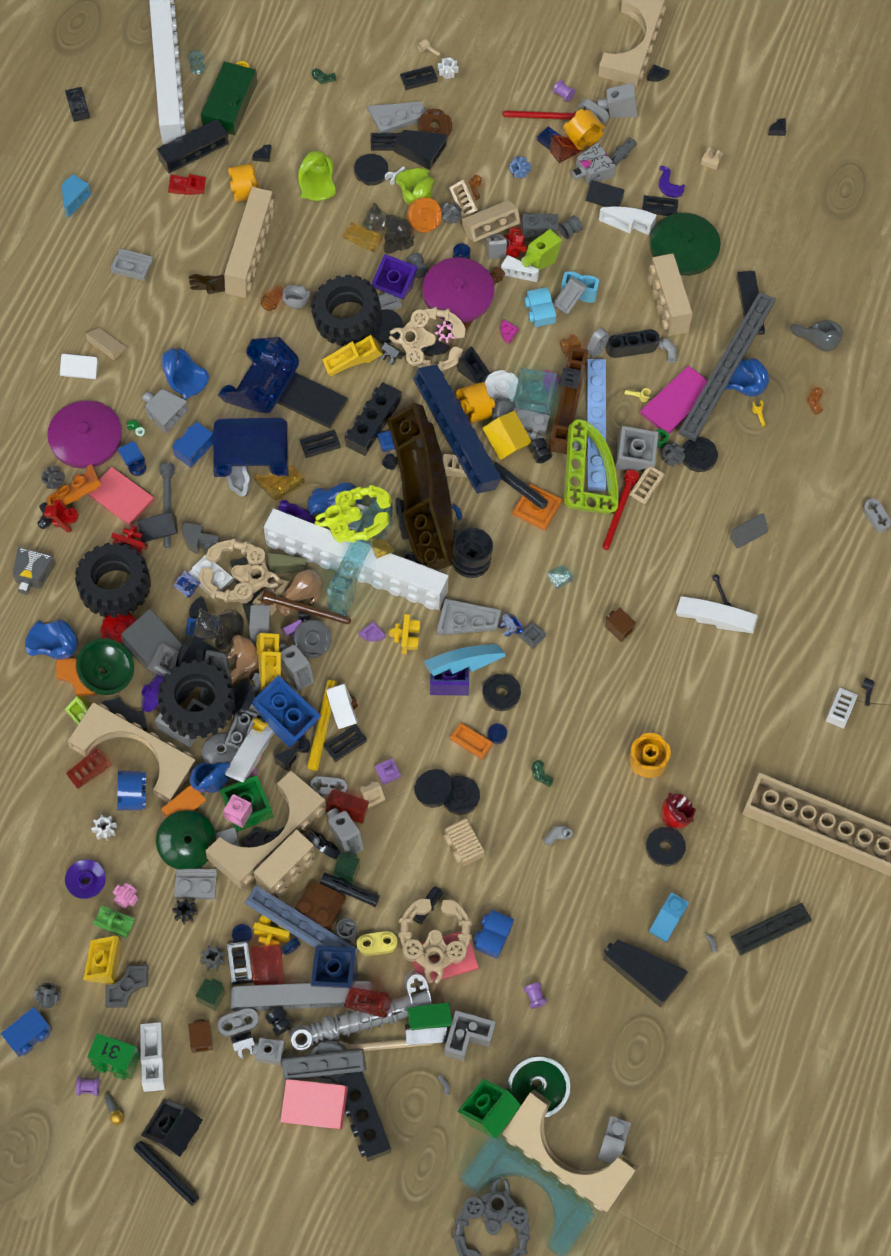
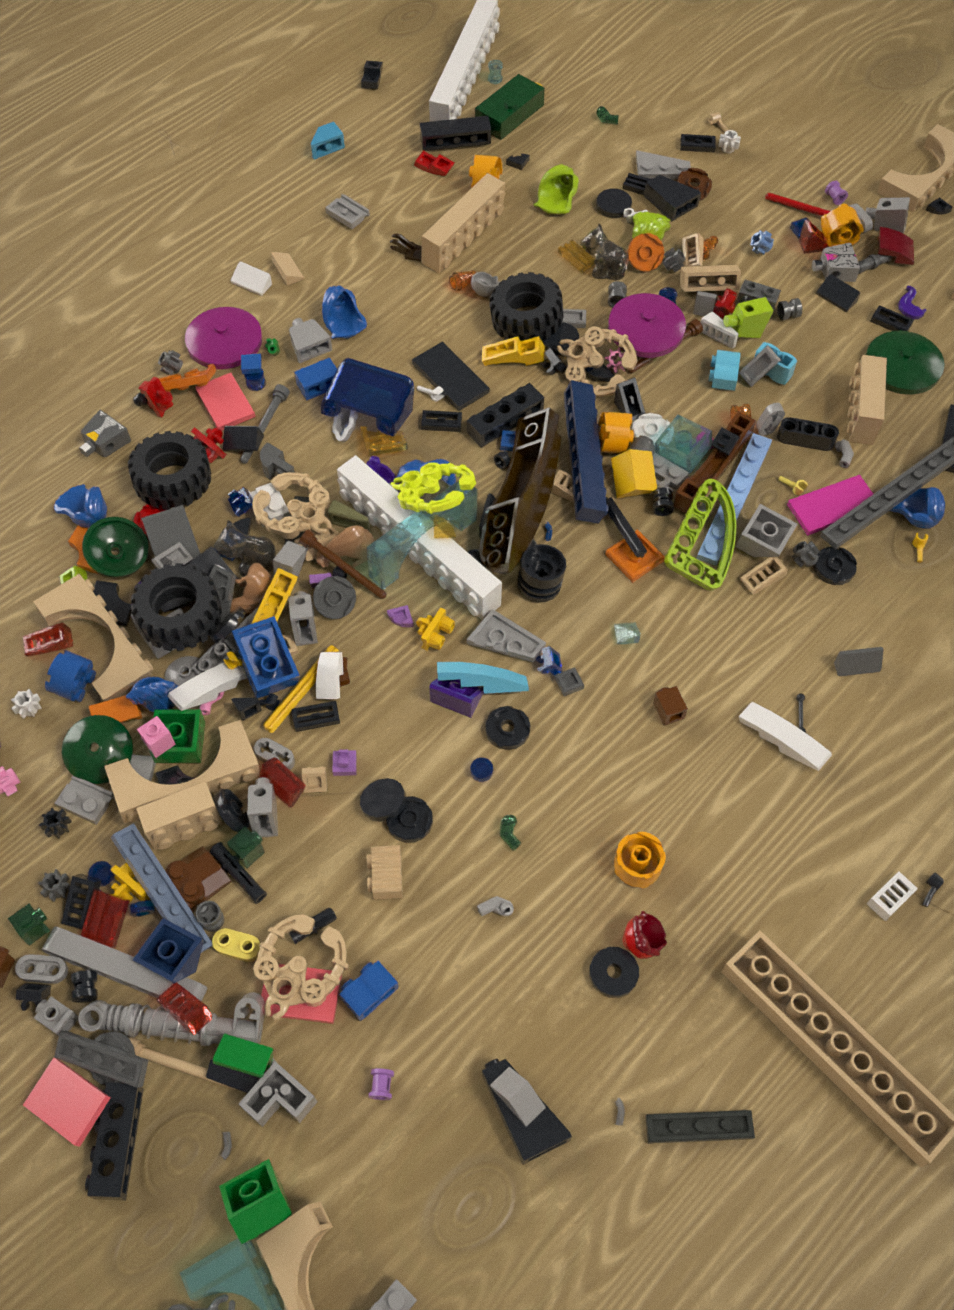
camera: 25 degrees right, 5 degrees down
(266, 378) = (432, 335): clear blue windscreen -> none
(302, 421) = (434, 394): none -> white hand
(395, 277) = (589, 295): dark purple slope -> none
(471, 741) = (450, 766): orange tile -> none
(508, 331) = (682, 382): dark pink tile -> none
(553, 1085) = (345, 1209): dark green dish -> none
(628, 219) = (853, 320): white slope -> none
(631, 478) = (747, 563): red piece -> none
(636, 129) = (896, 244): none -> dark red slope
(639, 960) = (518, 1096): none -> light grey slope
(660, 444) = (804, 534): green bush -> none
(669, 917) = (580, 1058): dark azure slope -> none

